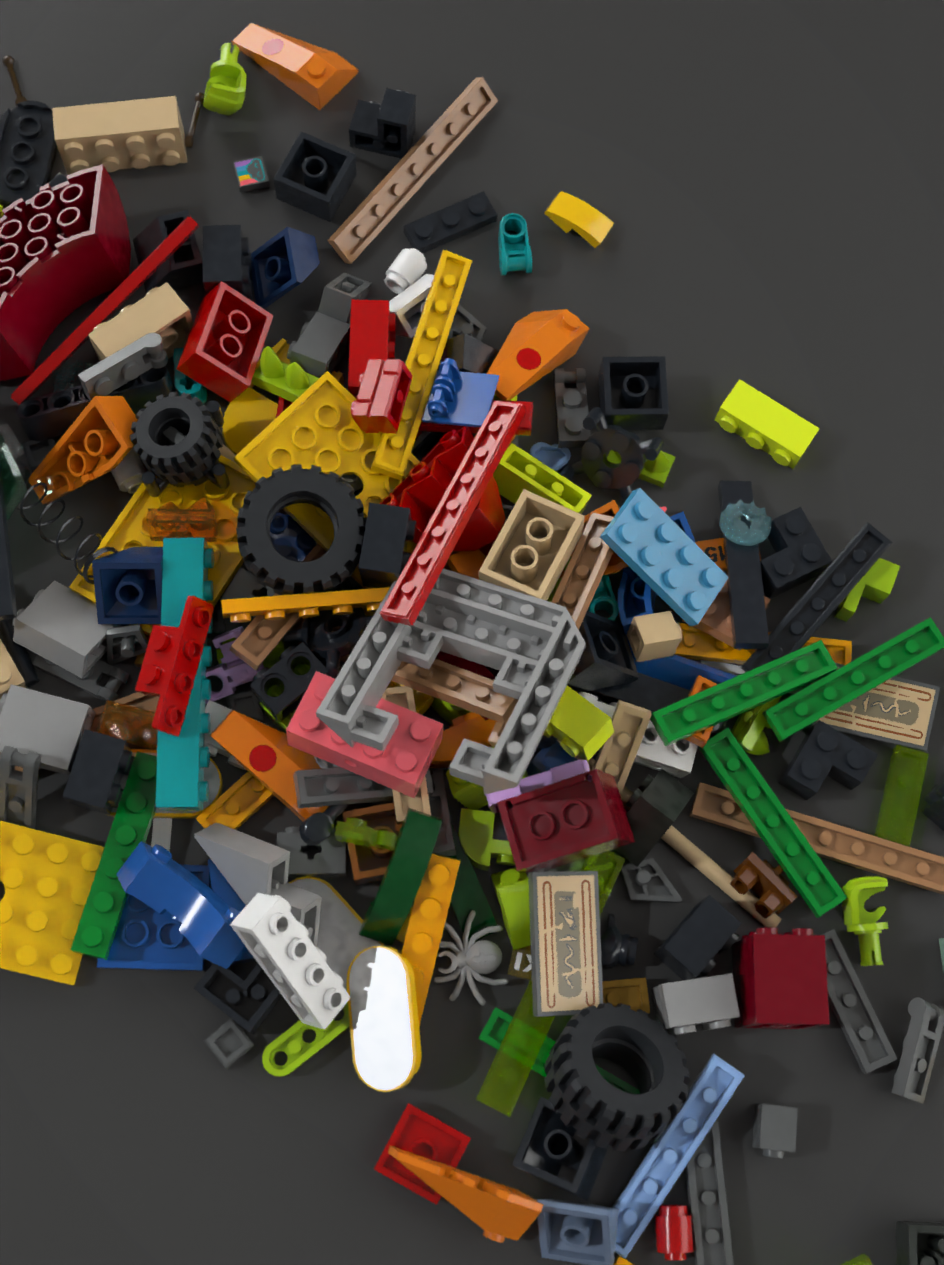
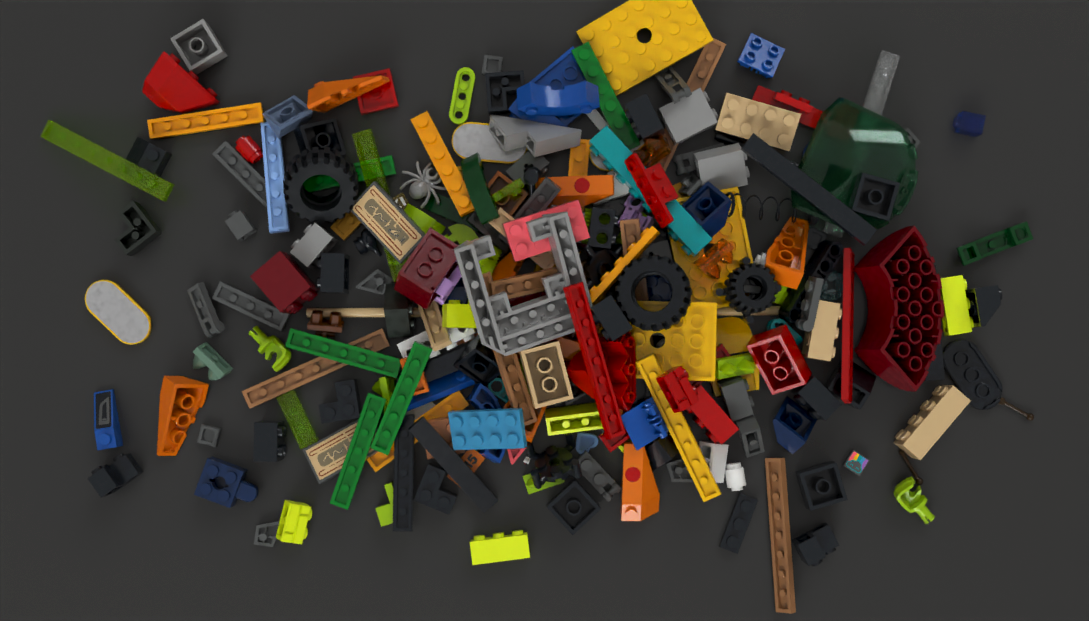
camera: 145 degrees right, 15 degrees up
(291, 960) = (492, 112): white brick -> none
(303, 67) = (887, 545): orange wedge -> none
(383, 1018) = (436, 127): tile -> none
(514, 249) = (694, 535): teal piece -> none
(574, 213) = (679, 580): yellow slope -> none
(654, 636) = (462, 391): tan brick -> none
(737, 530) = (467, 476): clear light blue gear -> none

